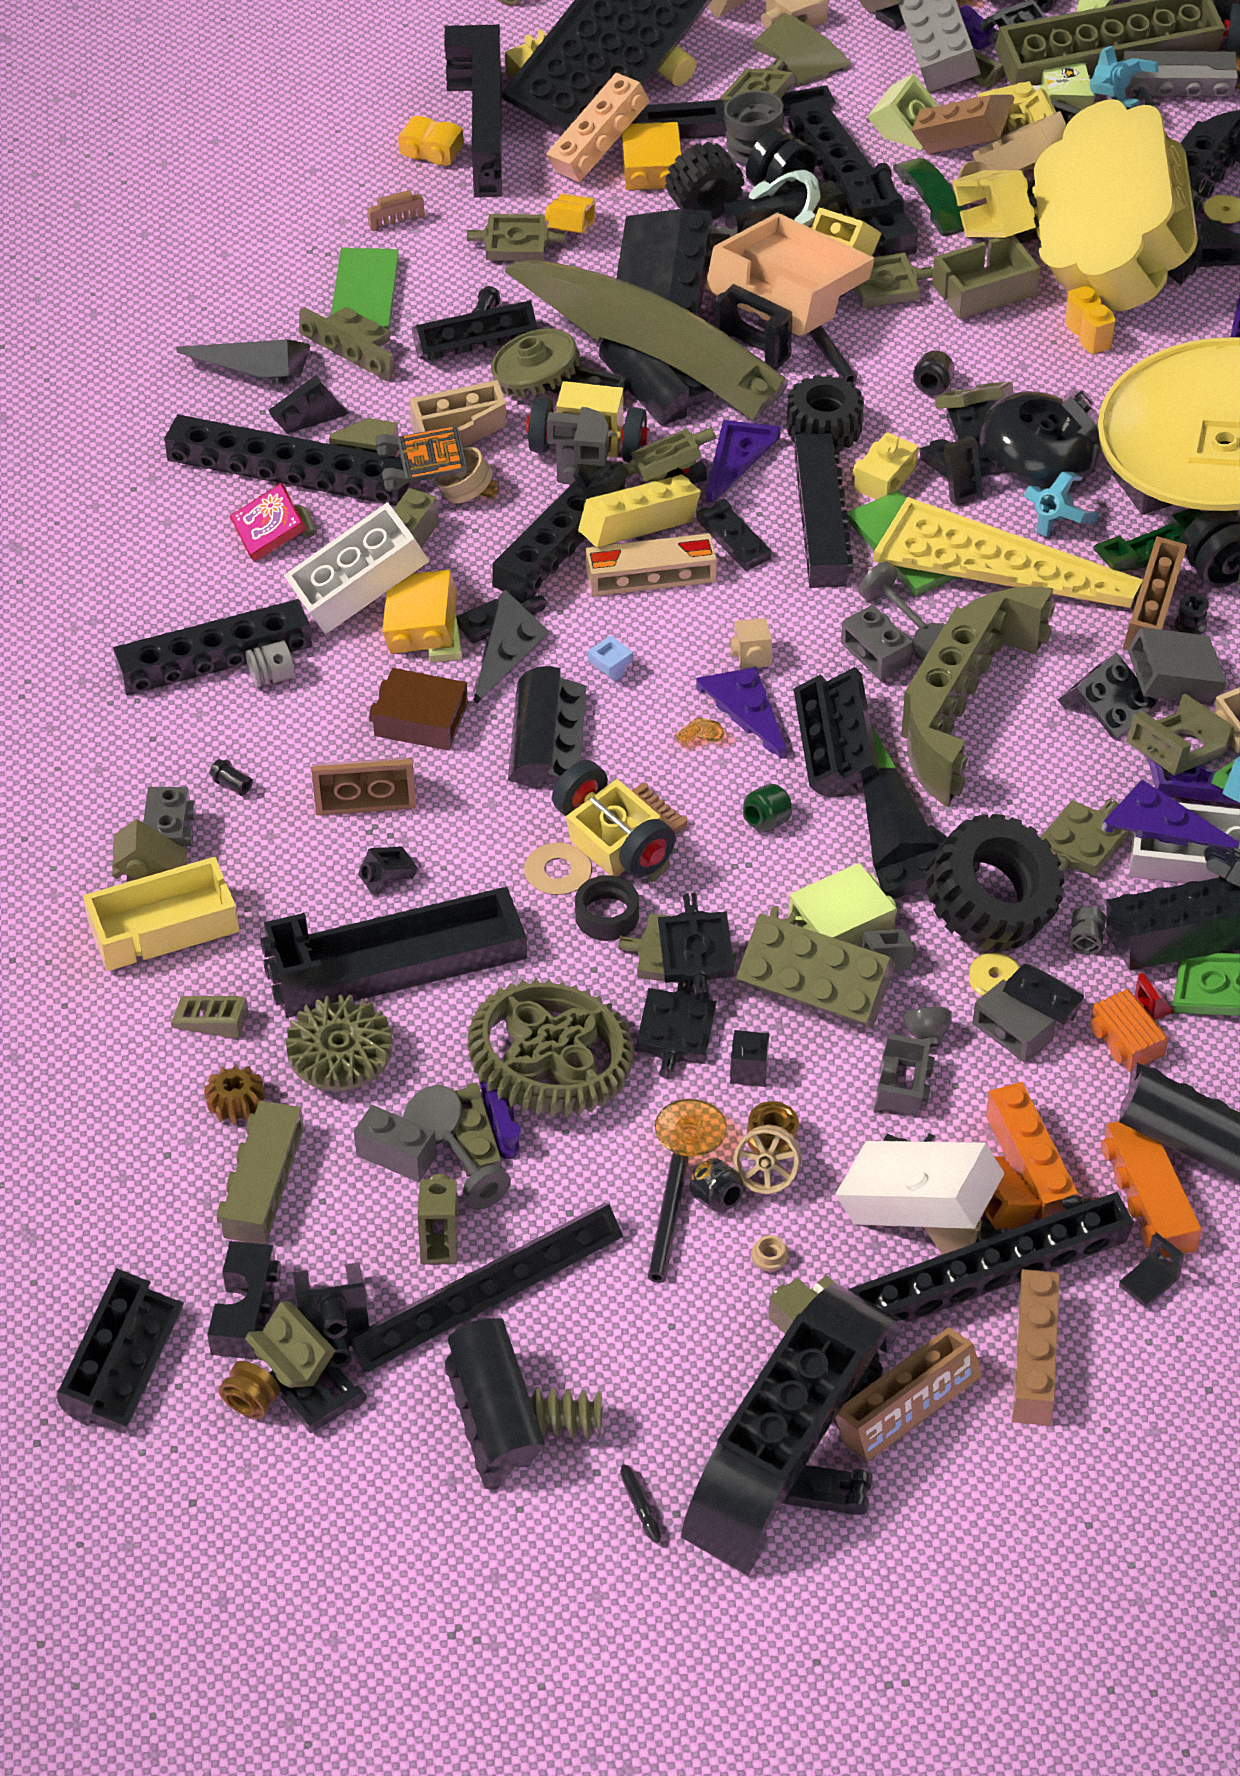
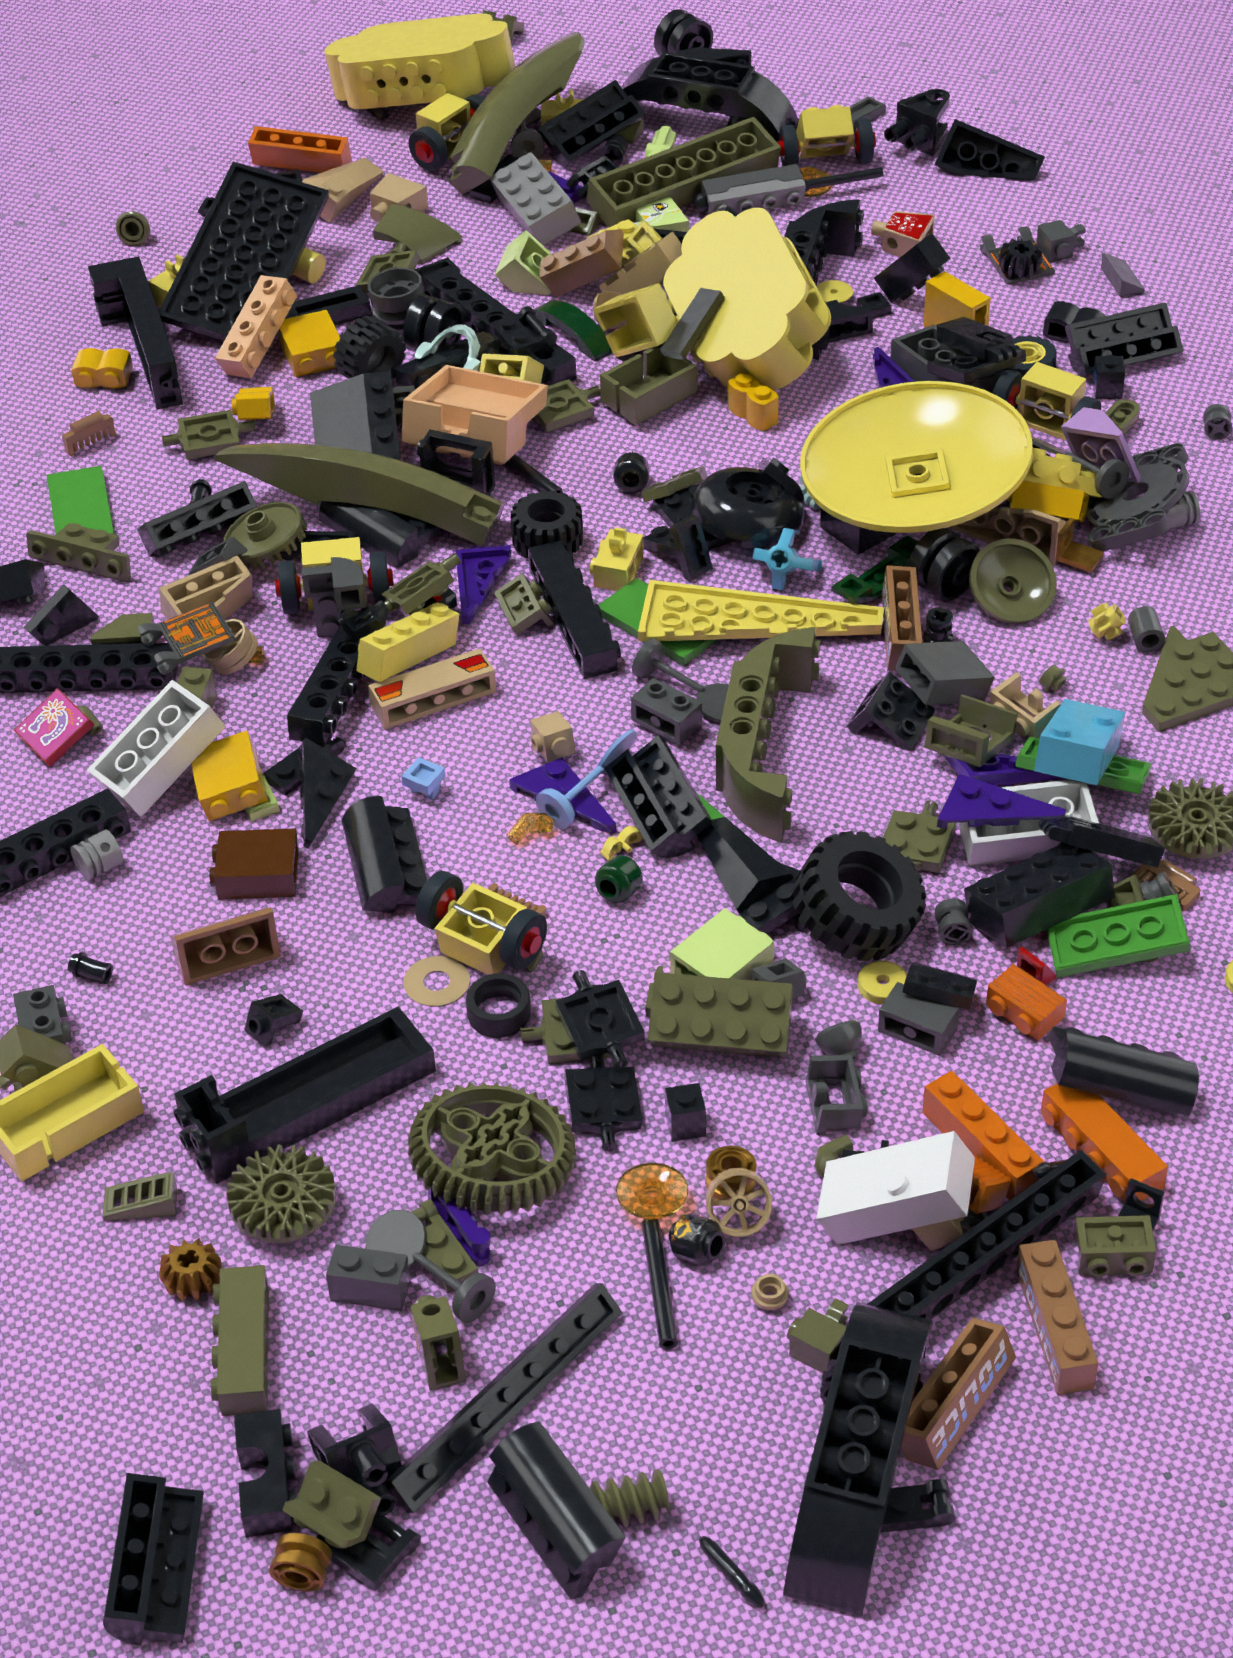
camera: 15 degrees left, 5 degrees down
(480, 374) = (219, 553): none -> dark grey slope
(732, 718) = (558, 805): none -> light blue piece
(734, 535) = (499, 647): black plate -> none
(773, 493) = (523, 603): none -> olive bracket
(777, 770) = (625, 838): none -> light yellow piece
(878, 1131) = (831, 1151): none -> olive arm
(1046, 221) = (692, 323): none -> black tile
(1113, 76) = (700, 201): medium azure piece -> none
(1120, 1293) = (1115, 1245): none -> olive bracket

